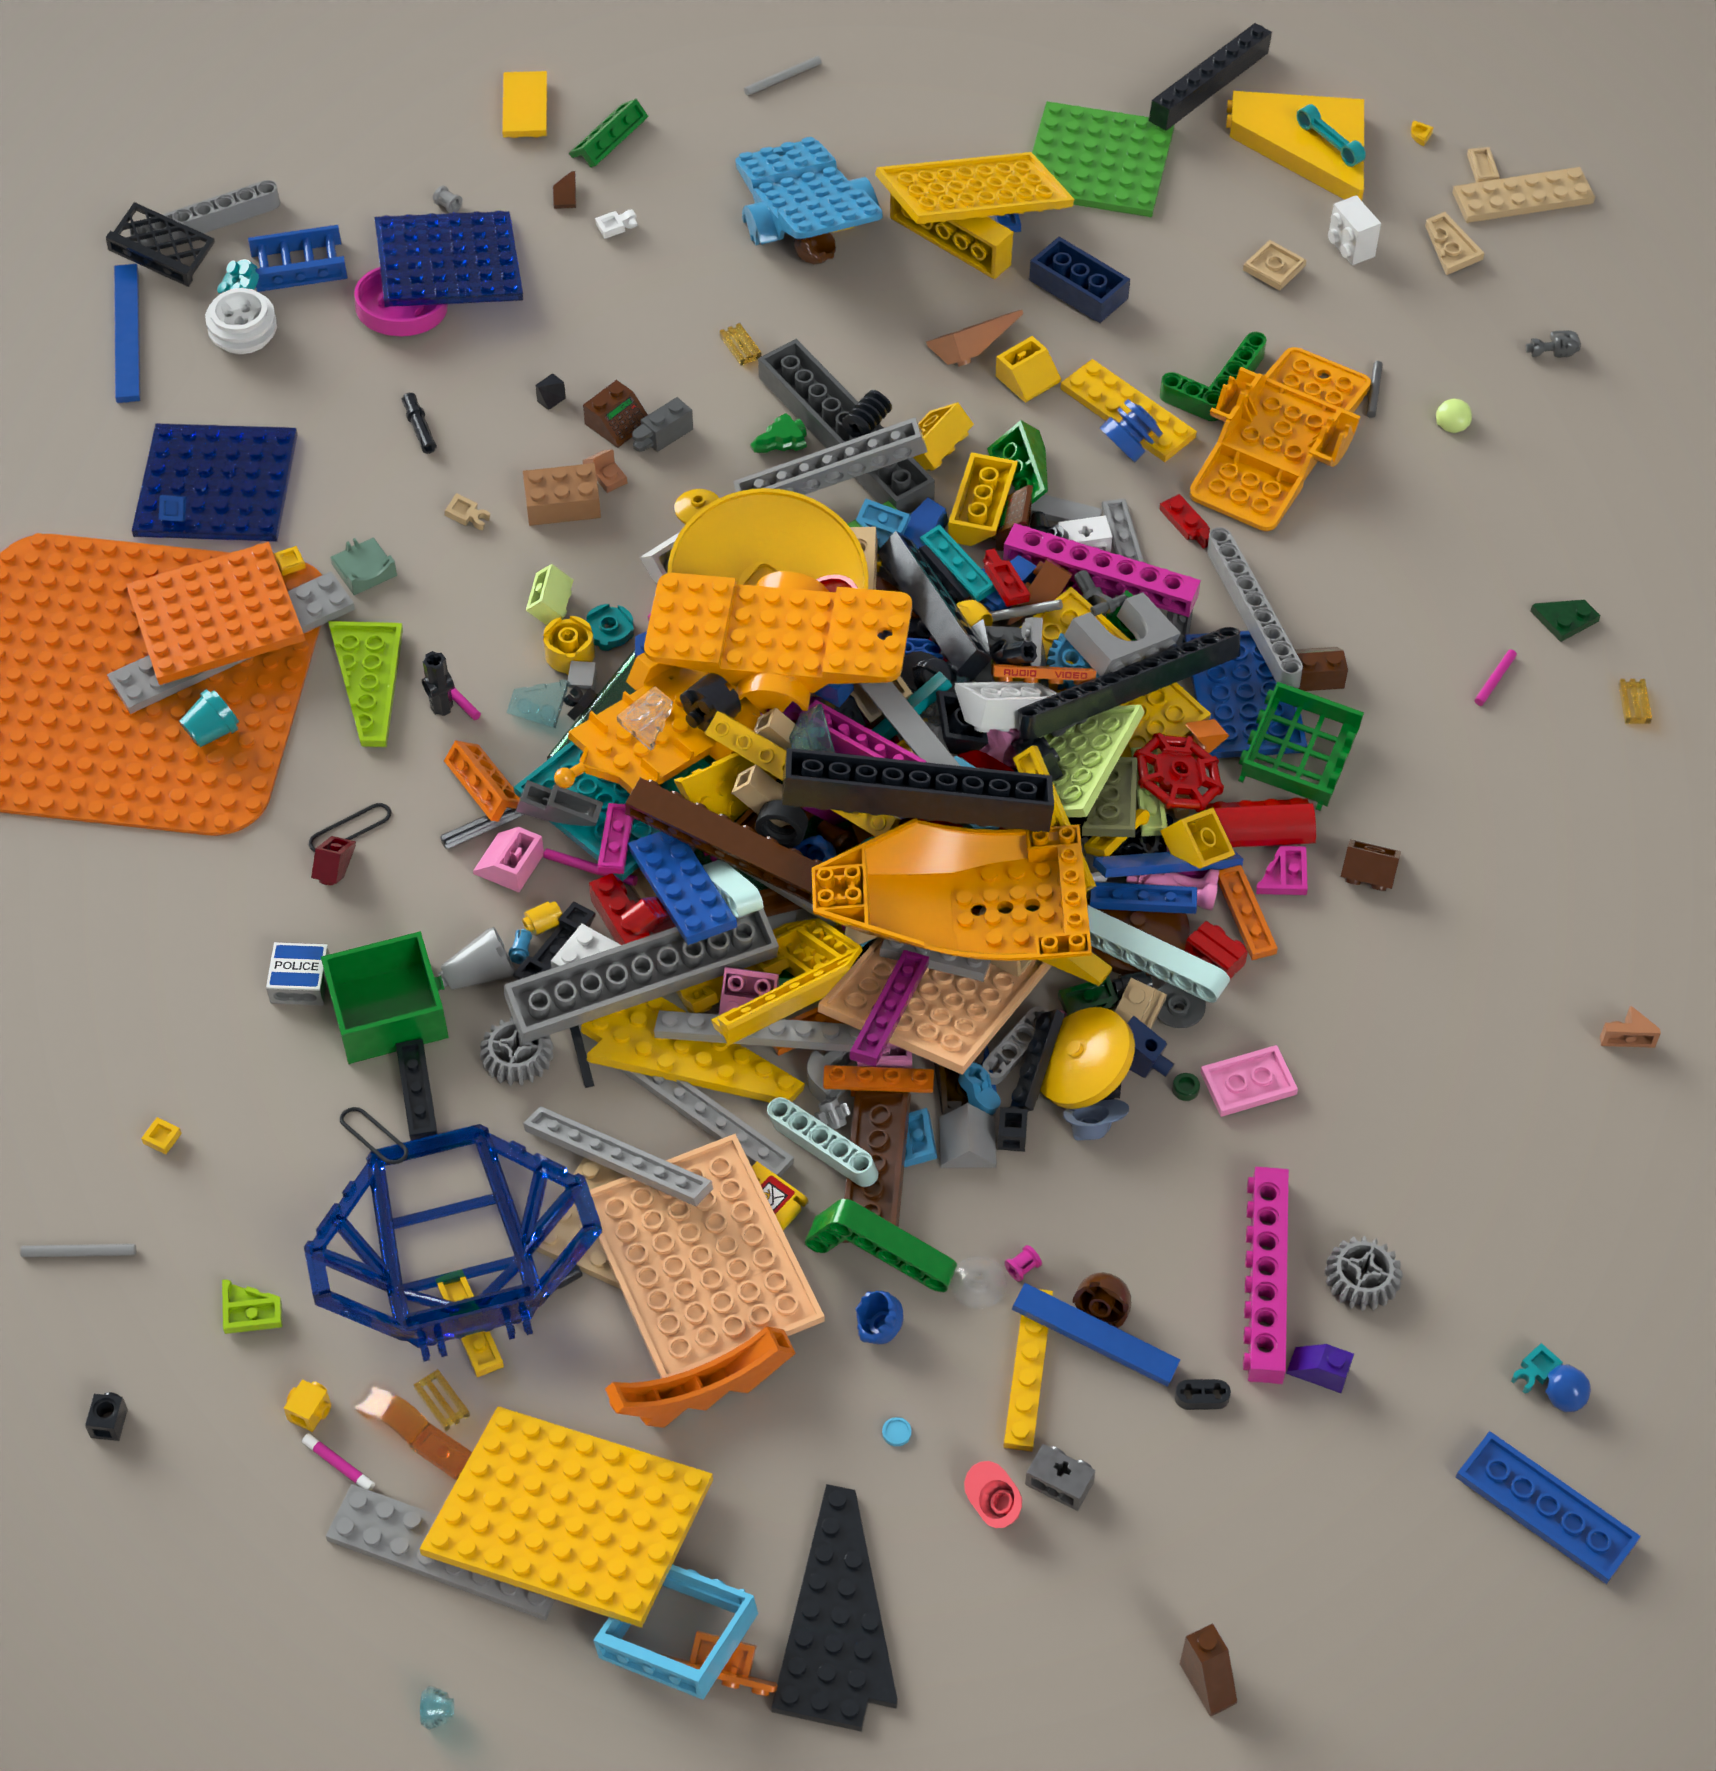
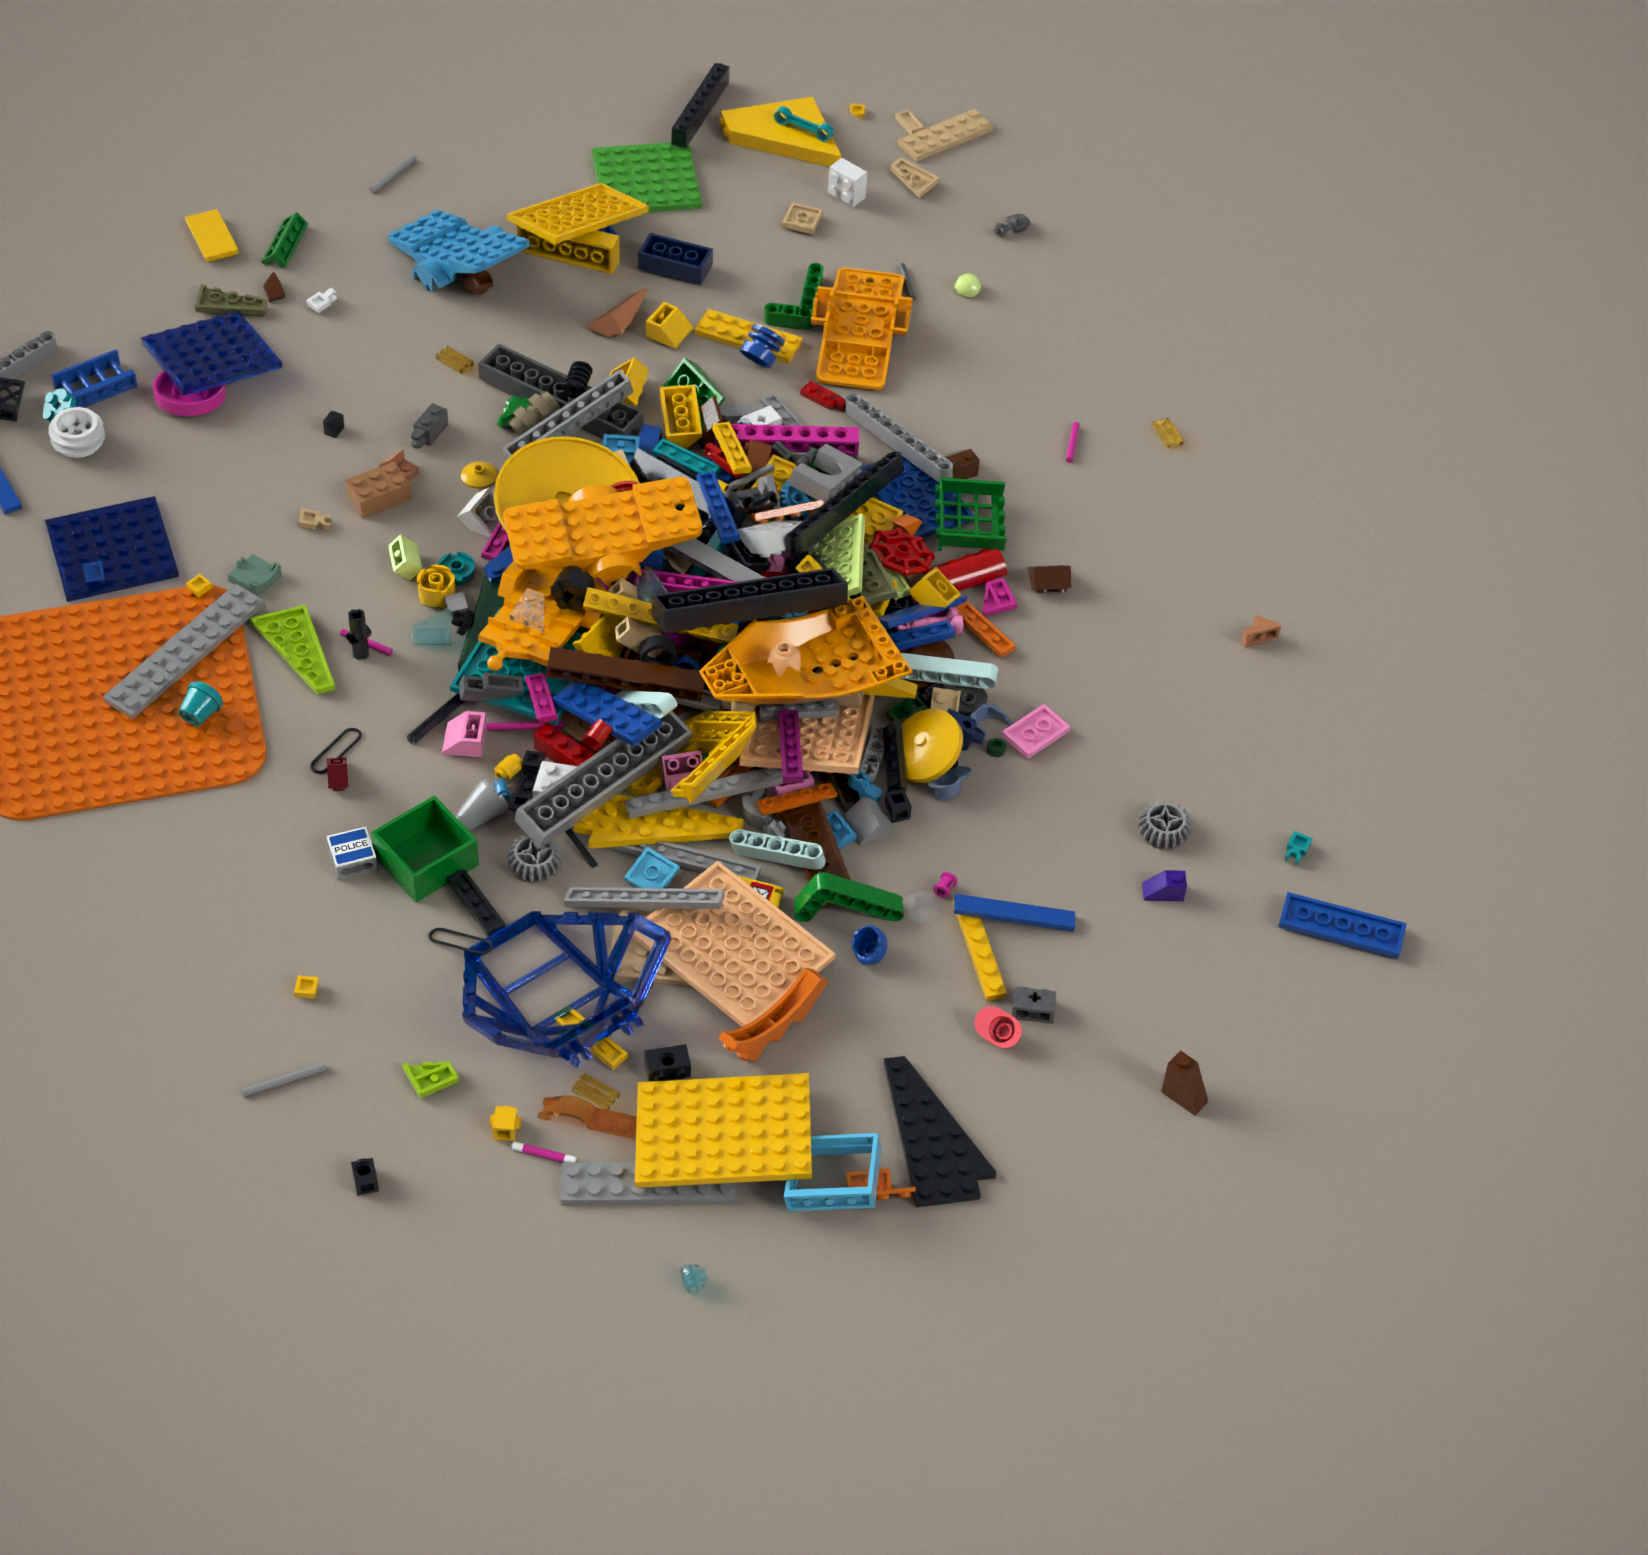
camera: 25 degrees left, 5 degrees down
(214, 613) = (164, 633): orange plate -> none
(416, 415) = (240, 464): black pin -> none
(447, 199) = (187, 314): light grey bush -> none
(481, 779) = (419, 691): orange fence -> none
(494, 193) = (223, 302): none -> olive wing
(534, 1383) = (675, 1056): none -> black brick
(614, 413) = (389, 427): reddish brown slope -> none
(651, 1120) = (652, 871): none -> medium azure tile
(804, 441) = (540, 408): none -> dark tan piece
(896, 1431) = (912, 1013): medium azure piece -> none
(935, 887) = (784, 655): none -> light nougat piece
(946, 645) = (717, 507): none -> blue tile
(1016, 564) = (731, 448): none -> yellow tile
(1104, 1298) = (1010, 887): reddish brown cylinder -> none
(1188, 1032) = (988, 711): none -> sand blue helmet
(1202, 1394) = (1098, 928): black beam -> none
(1216, 948) = (972, 652): red brick -> none
(1268, 1366) = (1105, 843): dark pink brick -> none
(1565, 617) = (1099, 393): dark green wing -> none
(1568, 1388) = (1323, 852): blue hair -> none

